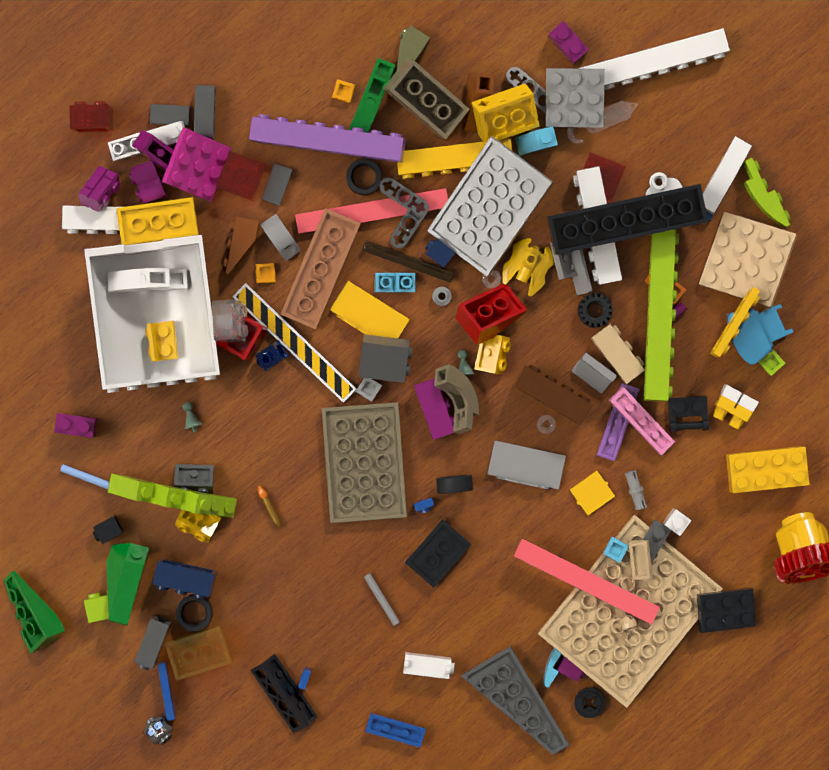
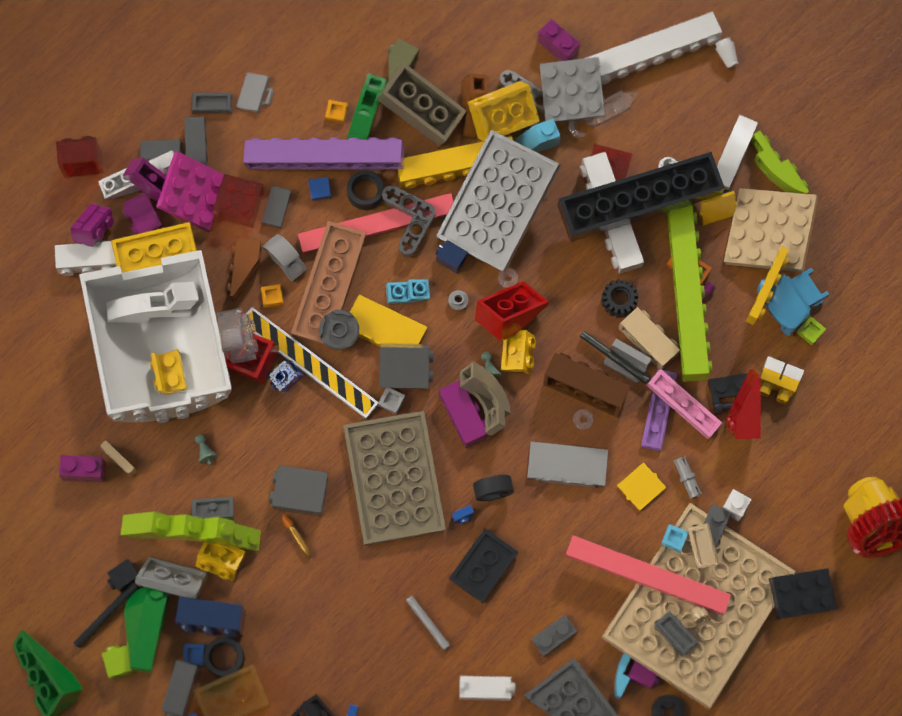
camera: 15 degrees left, 15 degrees down
(85, 476) = (95, 523): light blue bar -> none
(90, 562) = (106, 614): none -> black bar
(110, 419) = (118, 459): none -> tan tile
(151, 537) = (171, 578): none -> light grey tile
(167, 606) = (194, 654): none -> blue tile
(179, 275) = (181, 295): none -> white brick
(223, 70) = (211, 103): none -> dark grey tile
(265, 62) = (253, 93): none -> light grey piece
(275, 466) = (299, 490): none -> dark grey brick
(320, 170) = (319, 188): none -> blue tile
(326, 316) = (339, 330): none -> dark grey tile
(408, 261) = (419, 269): dark brown axle -> none
(495, 622) = (554, 635): none -> dark grey plate
(529, 263) = (544, 257): yellow piece -> none
(573, 265) = (590, 255): light grey bracket -> none
(582, 367) = (614, 357): none -> pearl dark grey bar
(605, 638) = (676, 633): none -> dark grey tile
(697, 437) = (746, 409): none -> red slope
(700, 232) = (718, 208): none -> yellow piece
(732, 69) = (727, 52): none -> white cone
(767, 469) = (824, 440): yellow brick -> none

